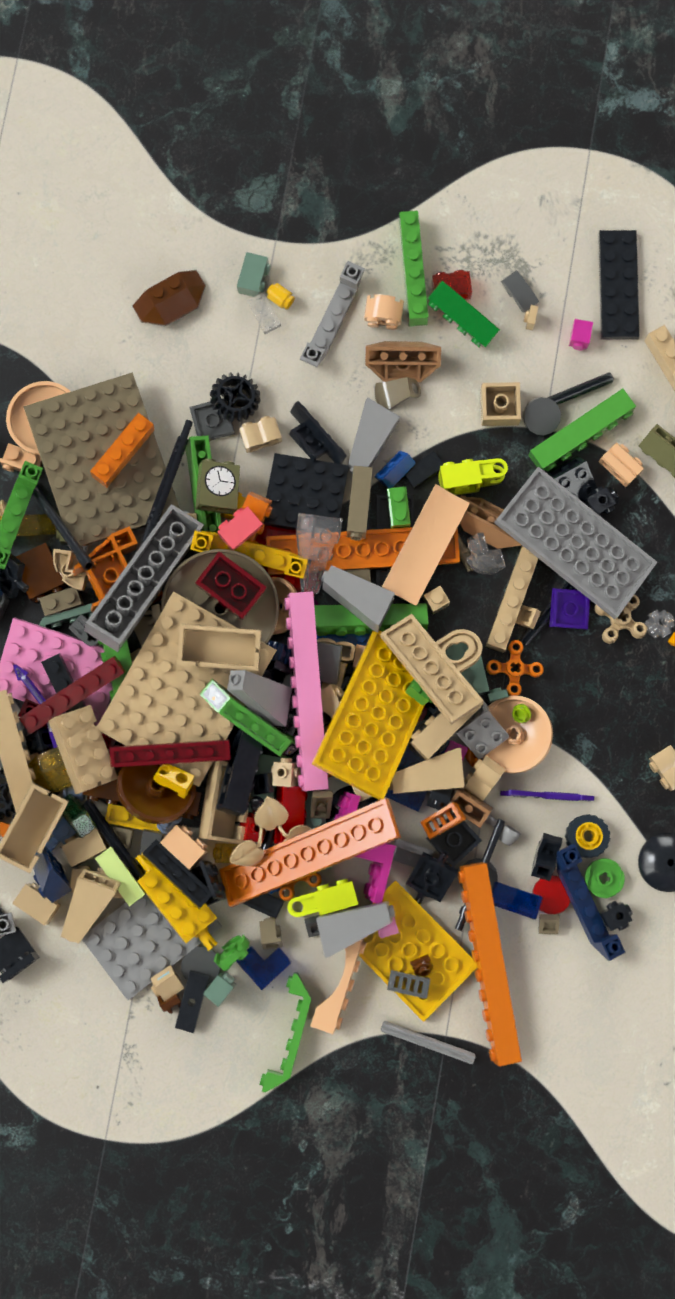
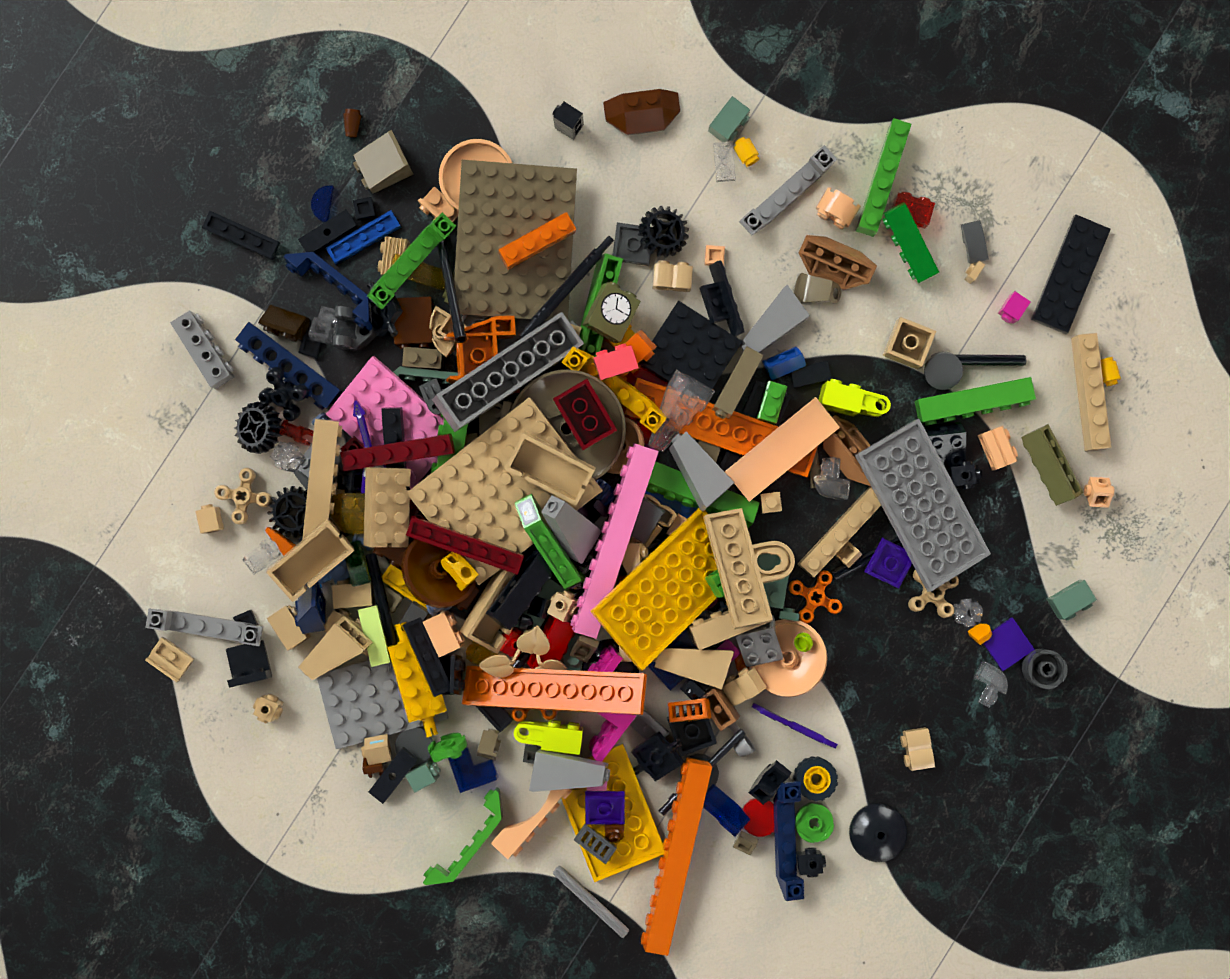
camera: 20 degrees right, 5 degrees up
(52, 983) = (274, 706): none -> tan brick
(106, 333) = (568, 120): none -> black brick
(289, 398) = (714, 254): none -> light nougat tile
(403, 945) = (605, 807): none -> dark purple tile

